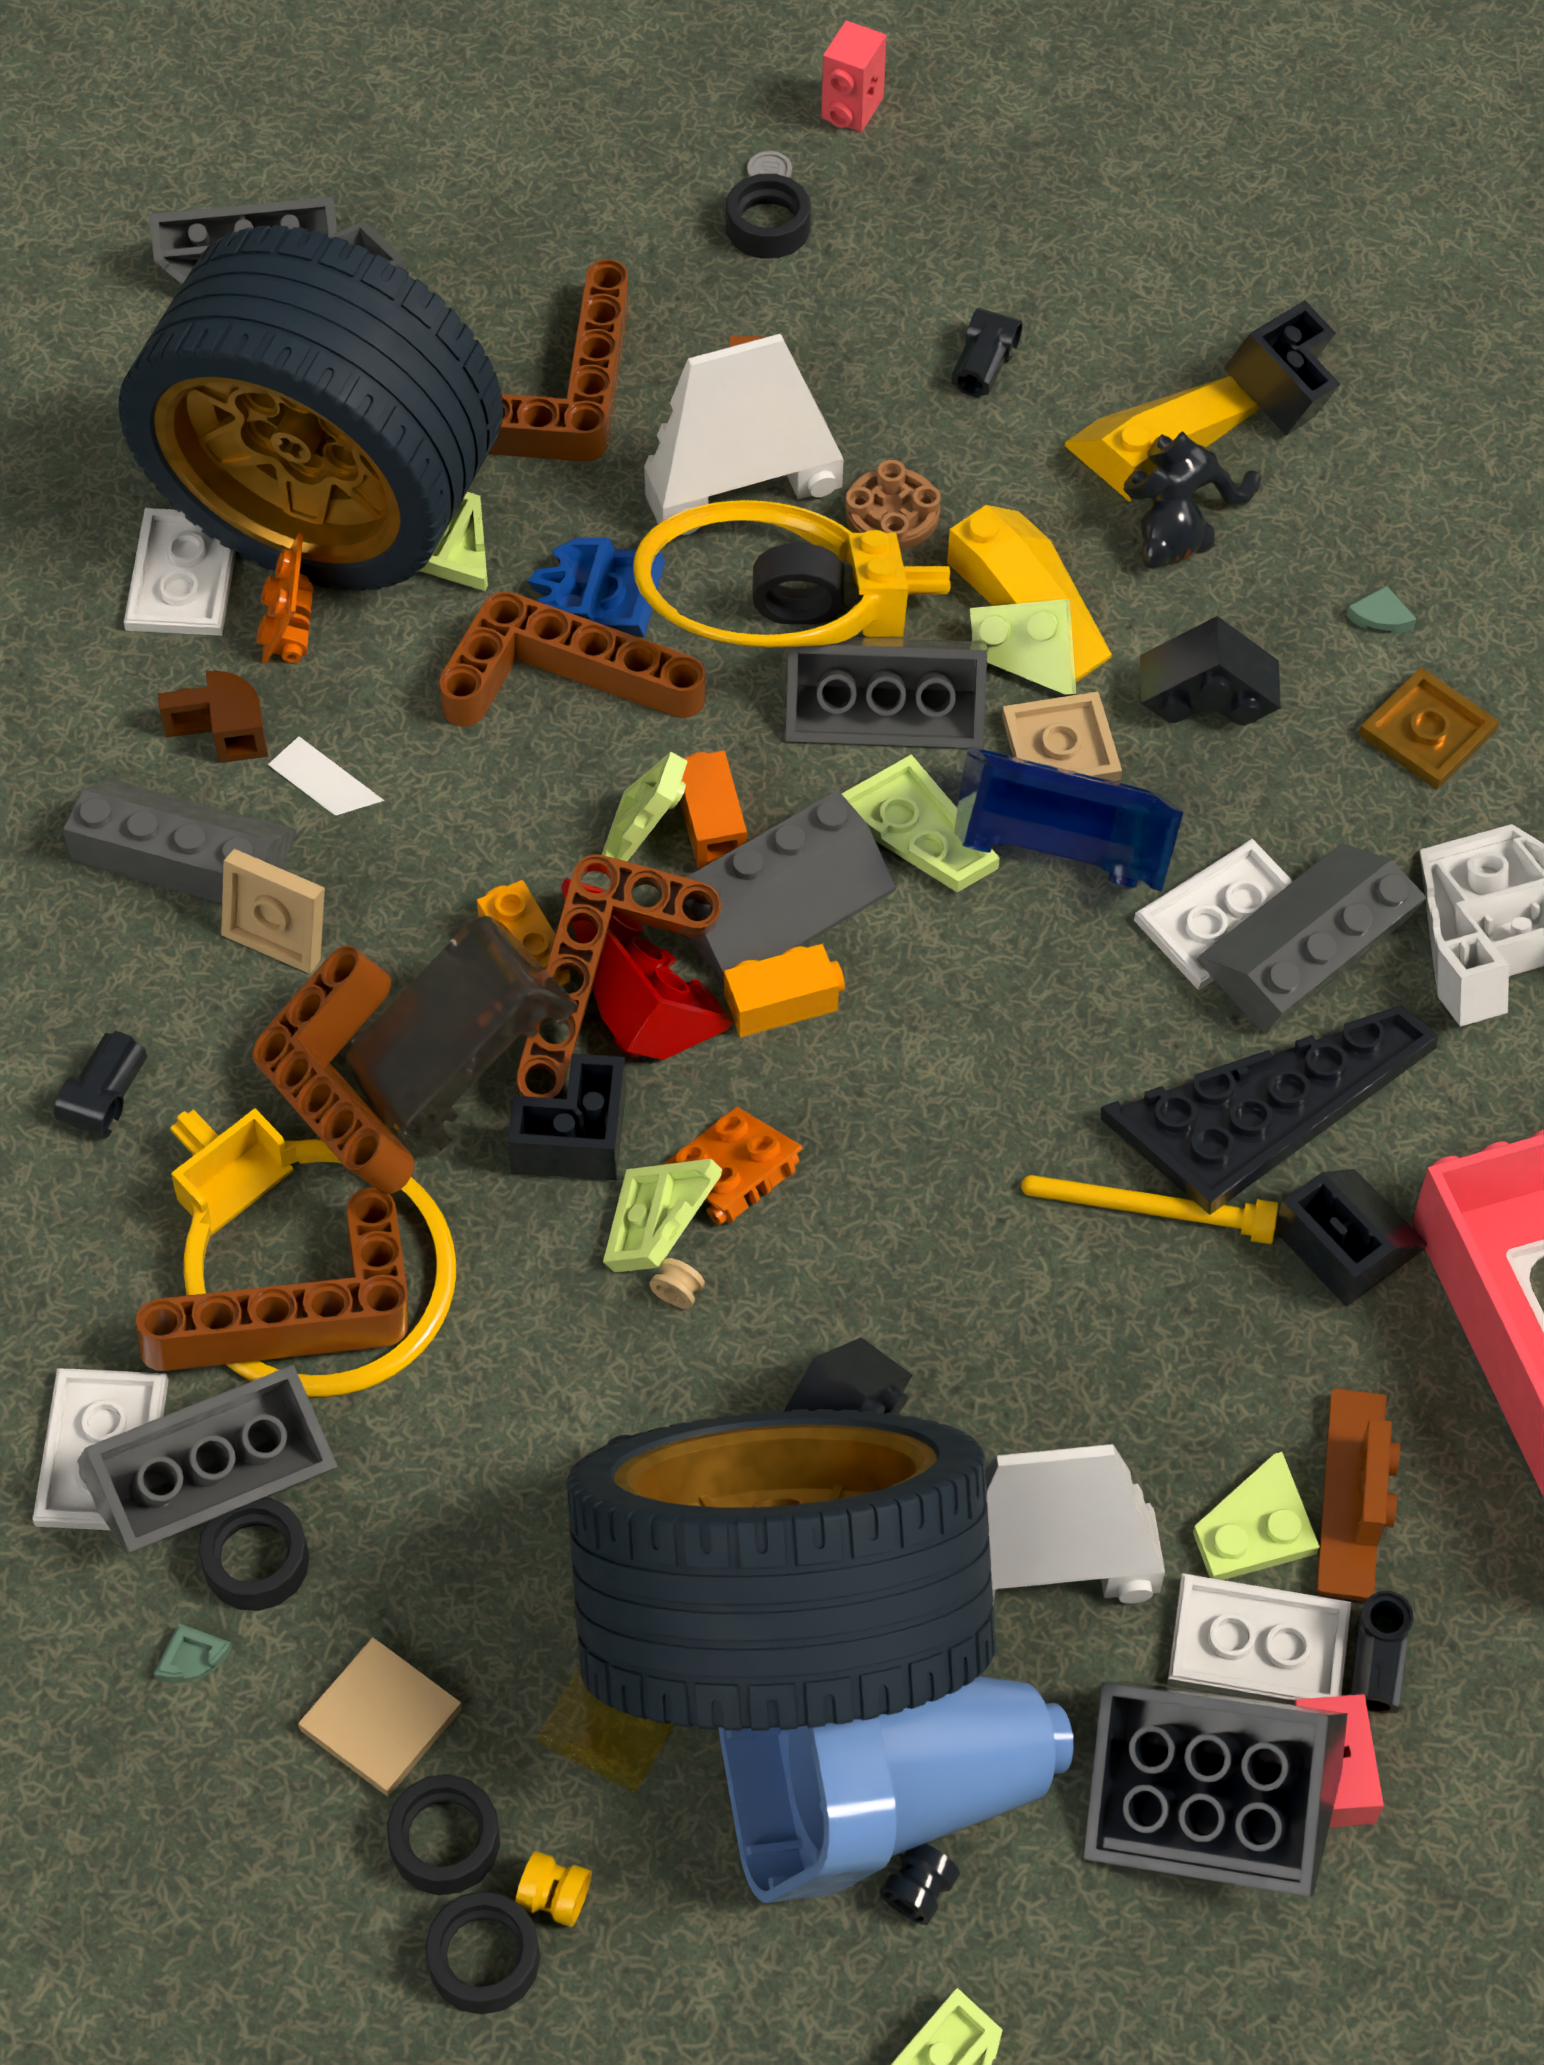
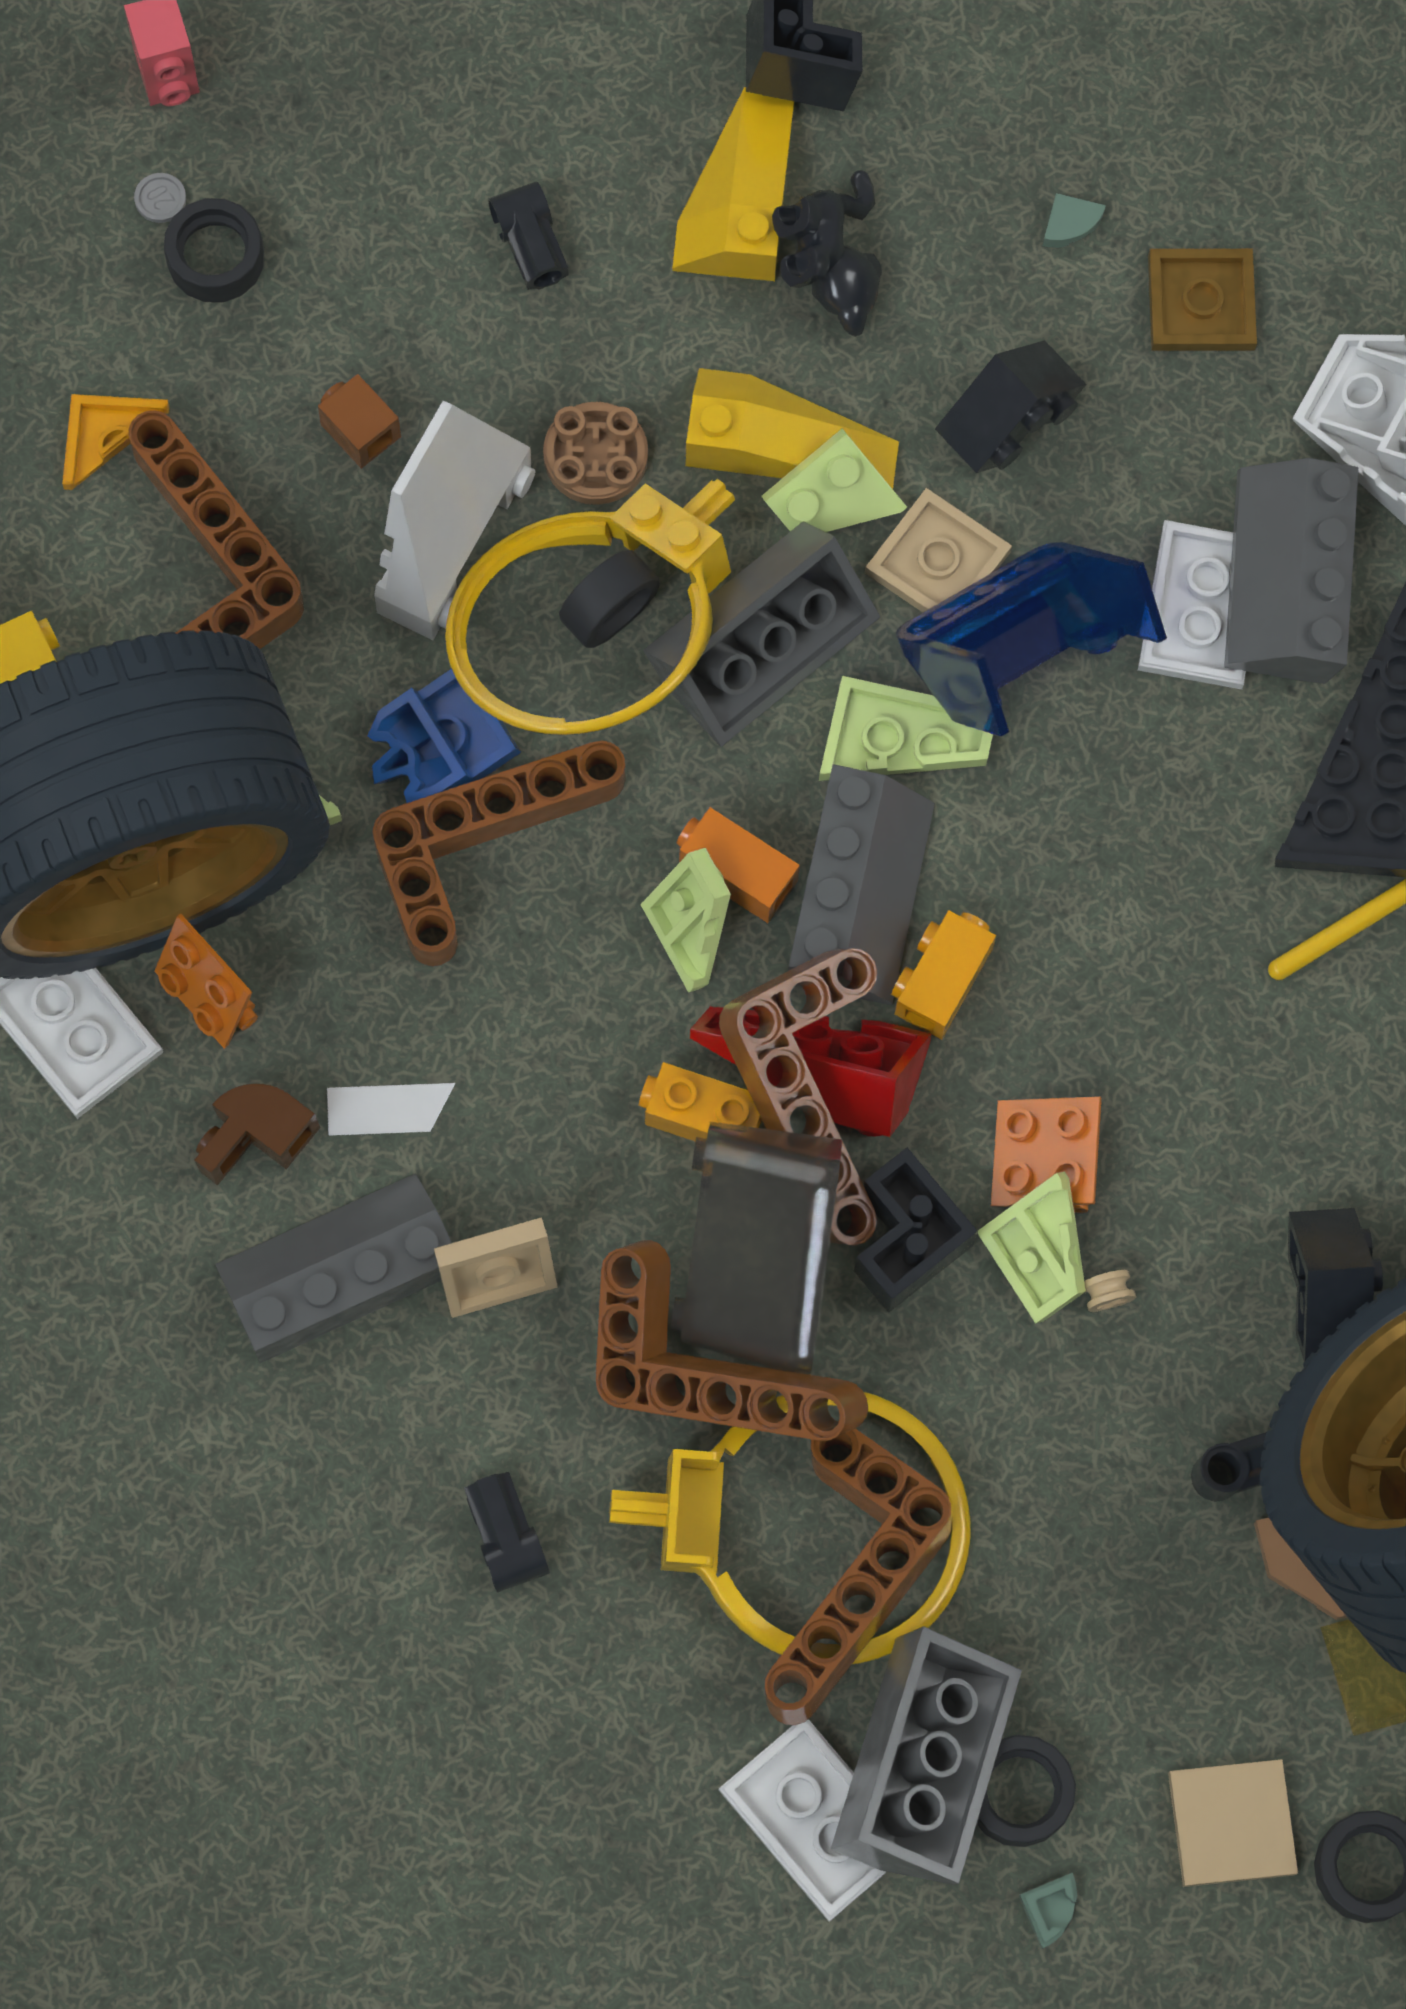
camera: 45 degrees left, 15 degrees up
(571, 263) = (100, 431): none -> light orange tile

